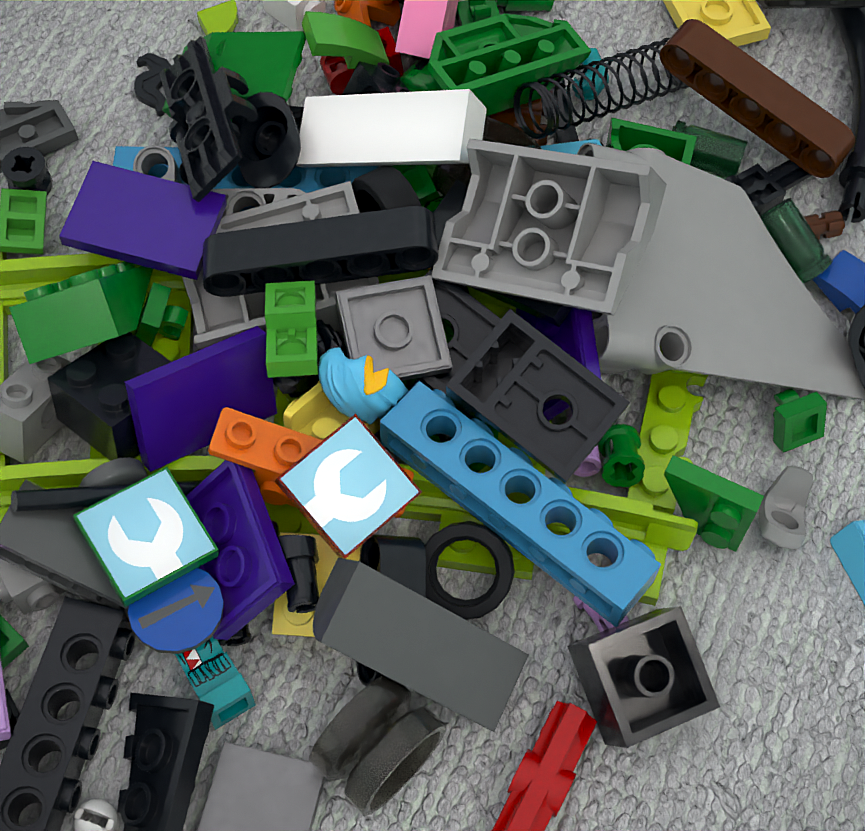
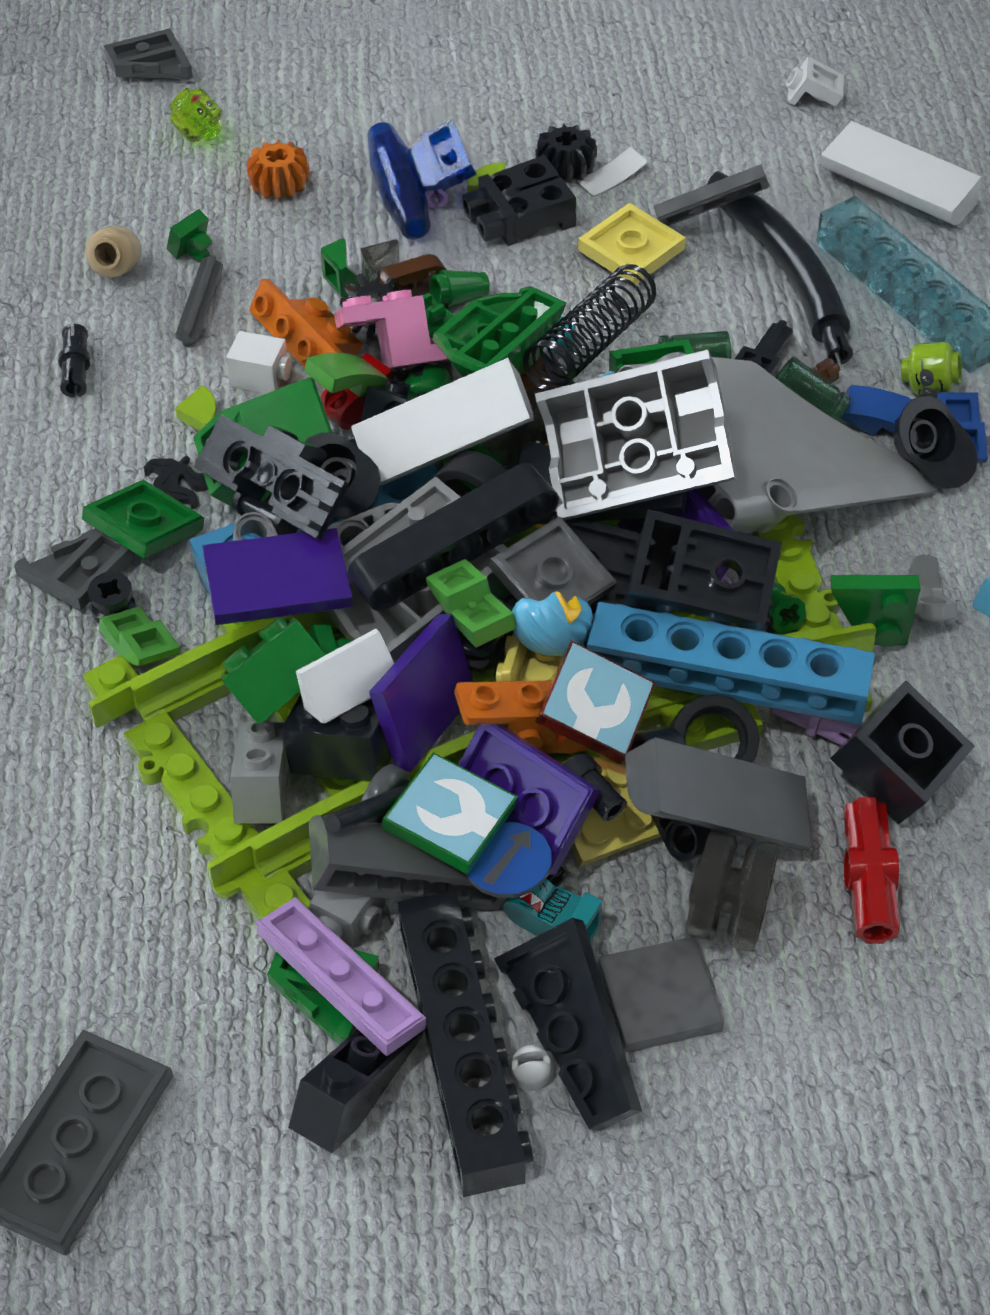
camera: 25 degrees left, 10 degrees down
(100, 108) = (143, 518): none -> green tile
(118, 353) = (344, 676): none -> white slope
(757, 98) = (717, 292): reddish brown beam -> none
(798, 419) = (896, 524): green tile -> none

